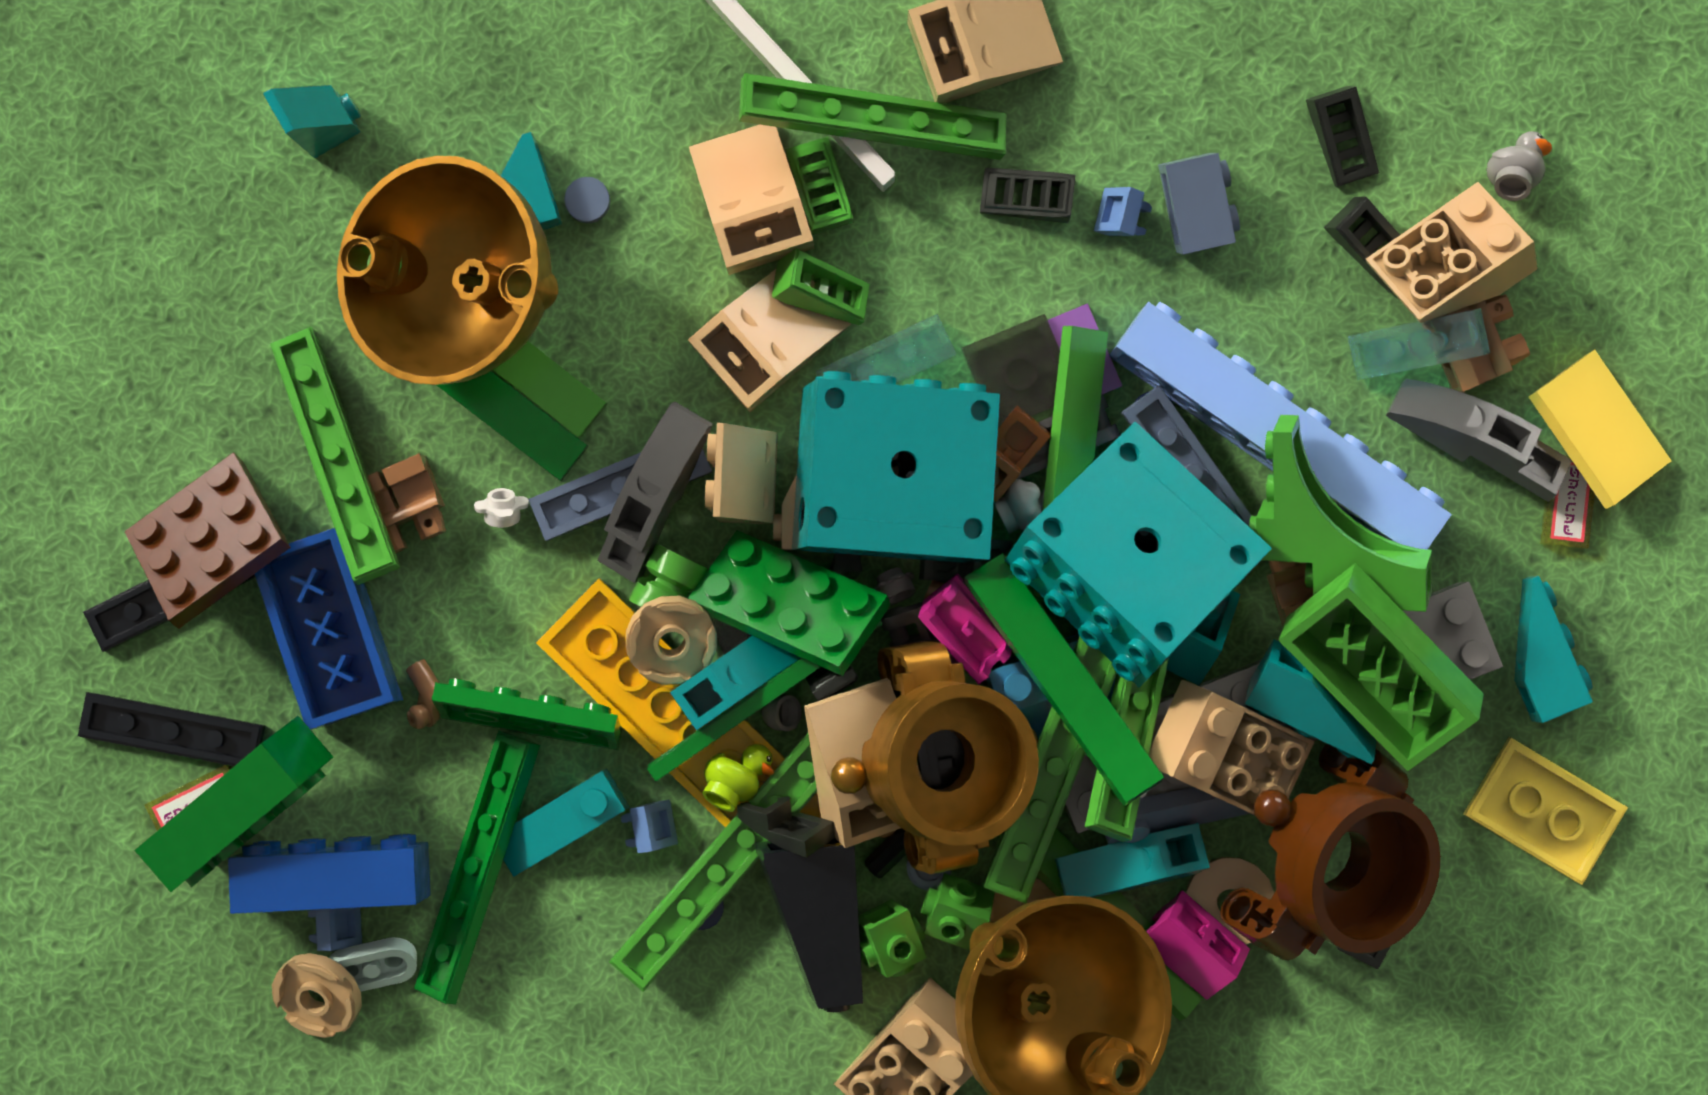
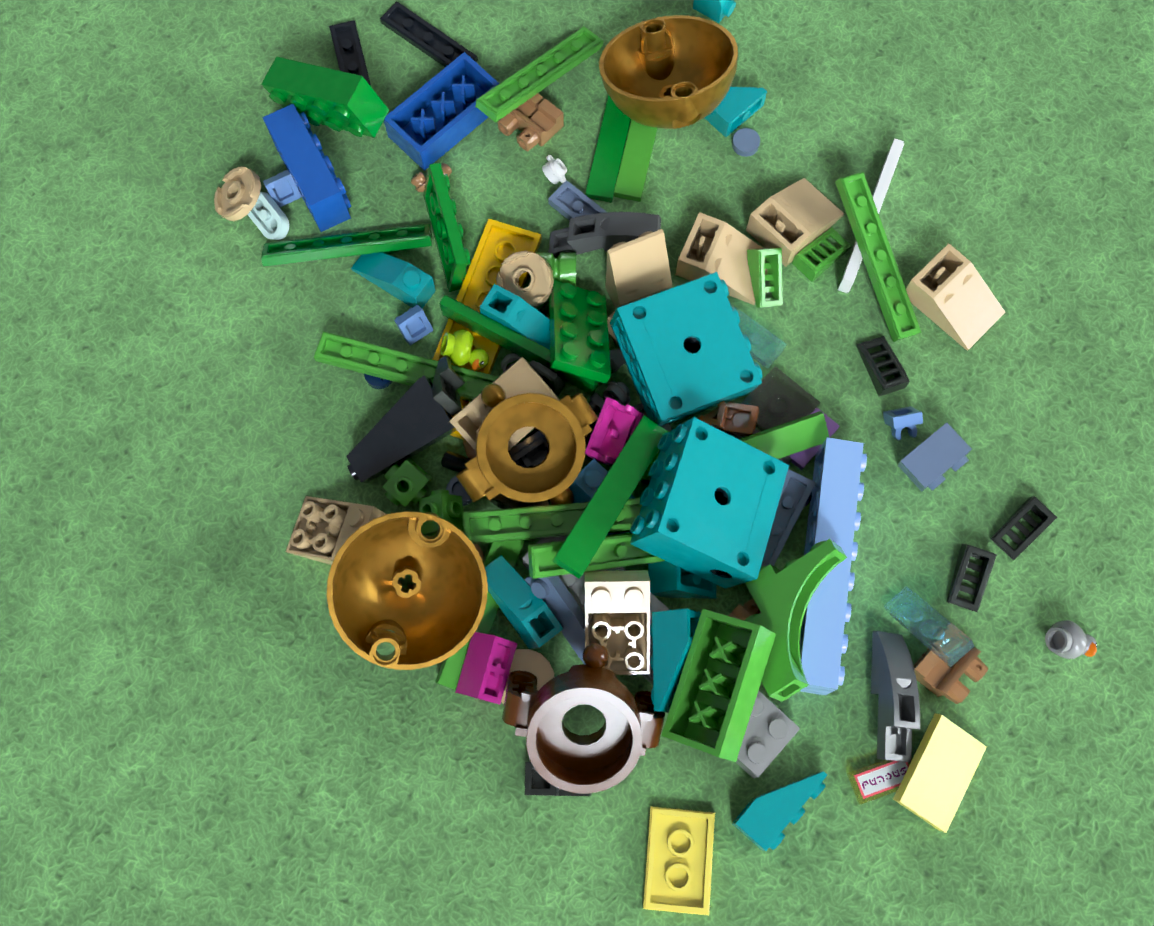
camera: 60 degrees right, 15 degrees down
(206, 540) = (463, 32): plate -> none
(1456, 256) = (1000, 626): tan slope -> none

